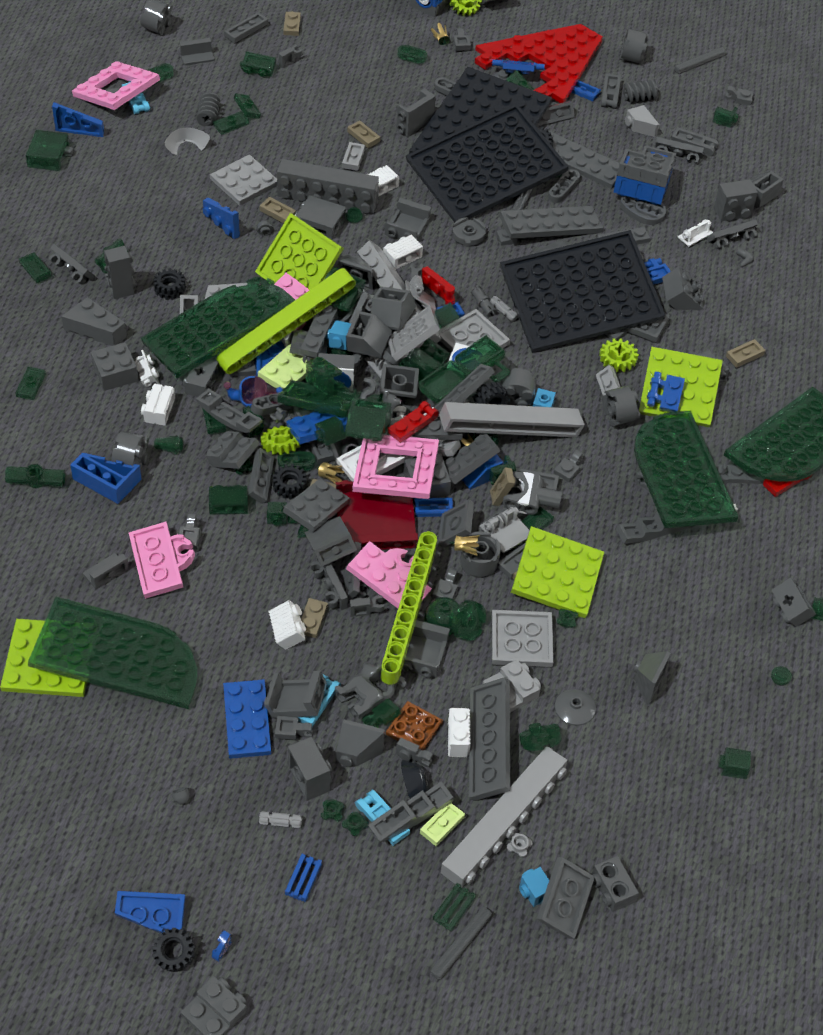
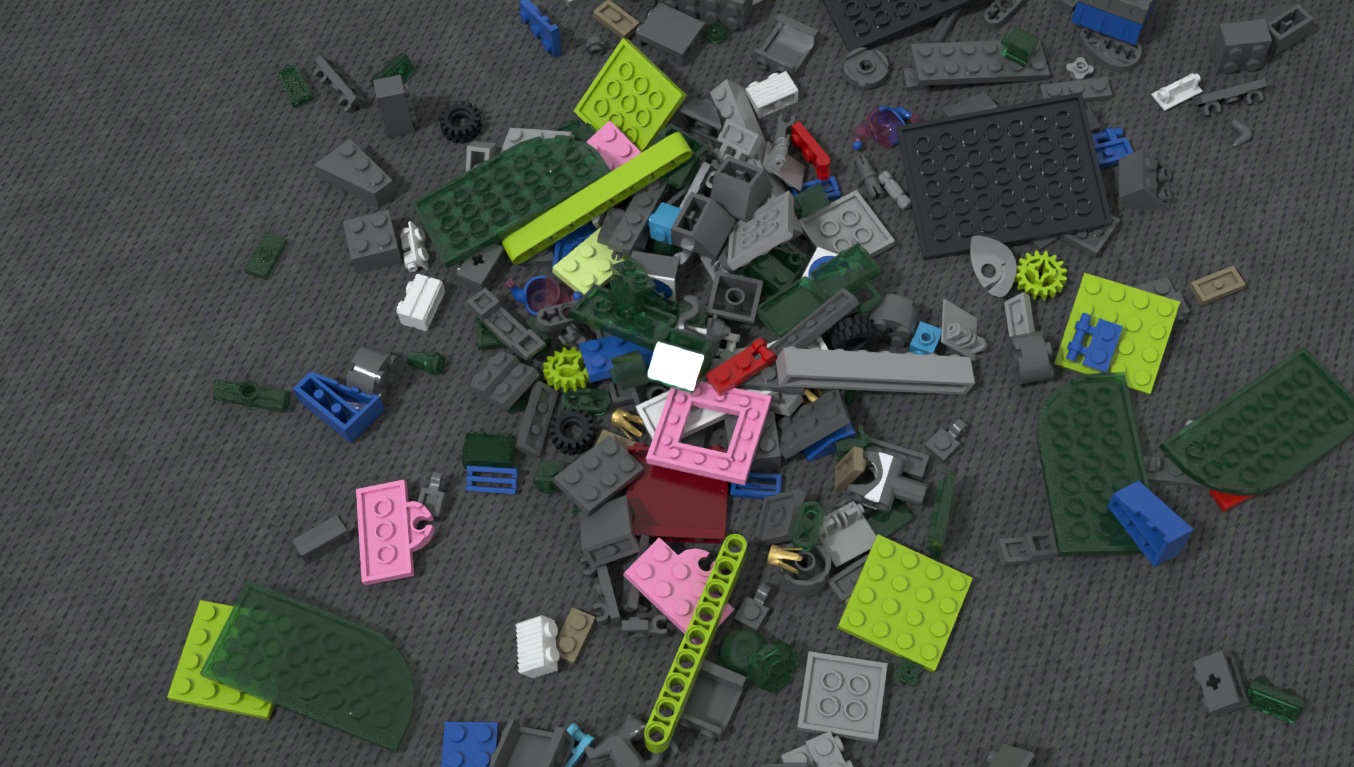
camera: 15 degrees right, 10 degrees up
(233, 510) = (470, 478): none -> blue tile
(385, 276) = (739, 138): none -> light grey plate
(480, 521) = (807, 528): none -> clear green plate
(486, 266) = (881, 126): none -> clear pink piece
(568, 393) = (960, 331): none -> light grey hinge
(574, 504) = (940, 515): none -> clear green plate
(579, 208) = (1018, 46): none -> clear green brick
(583, 342) = (990, 251): none -> light grey piece
(623, 223) = (1079, 74): none -> light grey plate
(727, 497) = (1150, 523): none -> blue wedge

